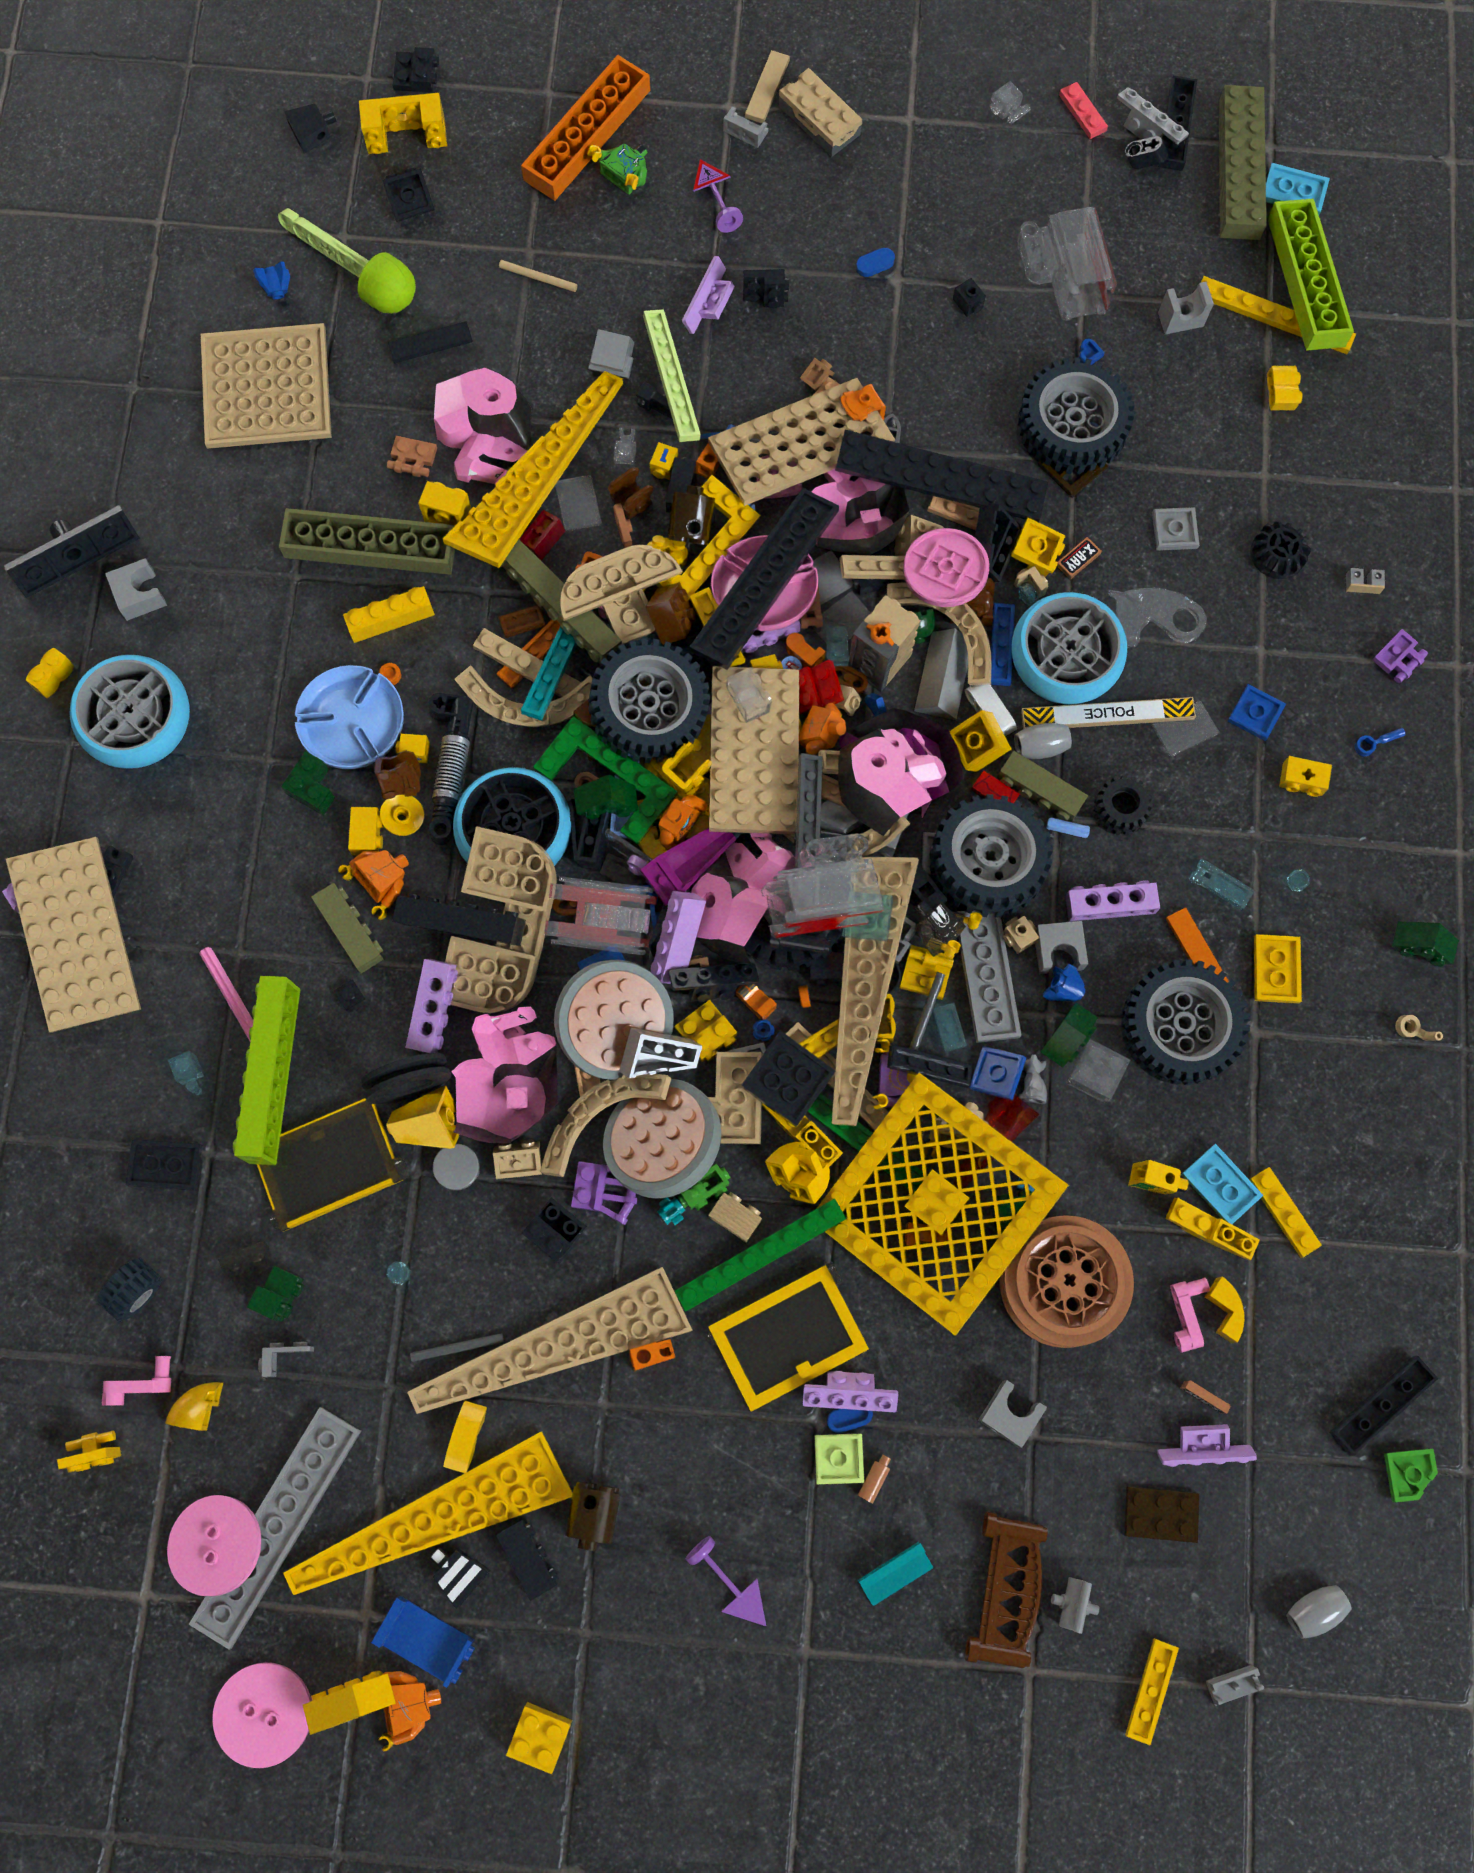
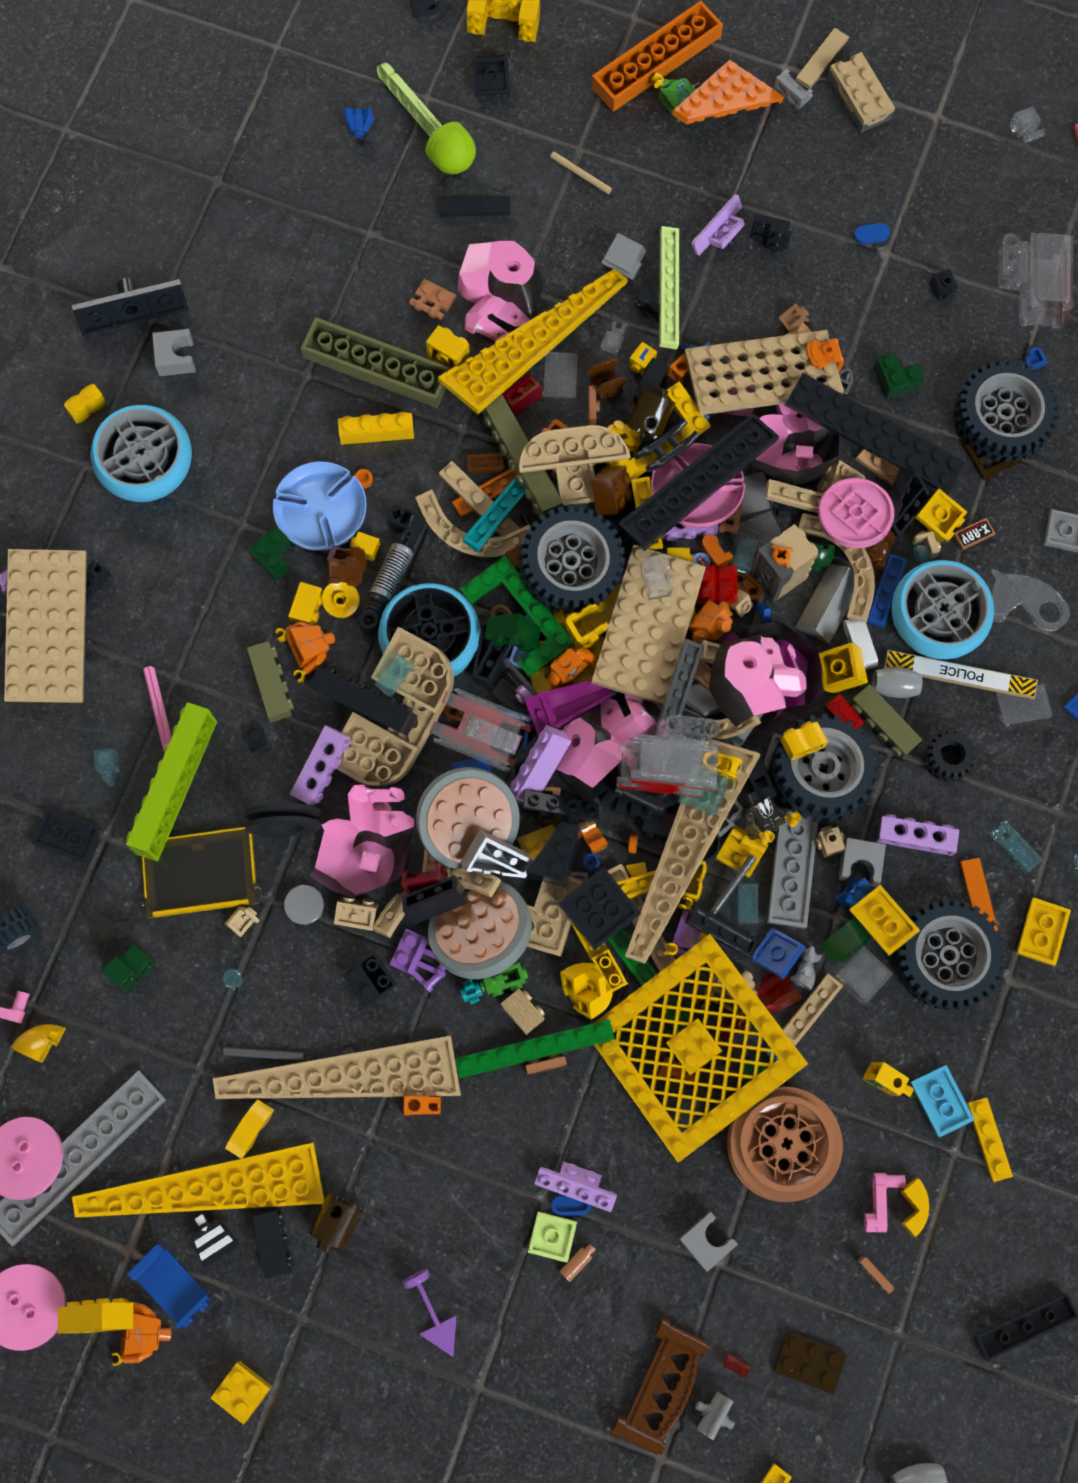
camera: 15 degrees right, 0 degrees up
(265, 385) = (327, 208): tan plate -> none
(268, 1362) = (106, 1022): light grey bracket -> none
(390, 1204) = (241, 920): none -> tan bracket
(426, 1121) = (289, 859): yellow slope -> none
(487, 882) = (394, 675): none -> clear light blue plate
(584, 1102) = (416, 881): none -> dark red hinge
(601, 1120) = (434, 899): none -> black brick
(673, 149) = (725, 94): none -> orange wing
(707, 175) = (750, 122): medium lavender piece -> none
(717, 537) = (668, 436): none -> black piece
(725, 1033) = (557, 856): none -> black wedge
(785, 1263) = (537, 1066): none -> nougat plate
(788, 1337) = (539, 1124): clear smoke door -> none
(816, 1023) = (636, 869): none -> yellow tile
(888, 881) = (728, 766): none -> yellow piece
(895, 1573) = (572, 1345): teal panel -> none
(947, 413) = (895, 379): none -> dark green brick
(961, 830) = (803, 740): none -> yellow brick
(1052, 1122) = (812, 1008): none -> tan tile
(1068, 827) = (898, 762): light blue axle -> none
(1083, 1542) = (737, 1366): none -> clear red pin
(1104, 1004) = (884, 920): none -> yellow plate
(1206, 1445) = (863, 1315): lavender bracket -> none
(1211, 1229) = (921, 1136): yellow slope -> none
(1410, 1473) = (1032, 1390): bright green plate -> none

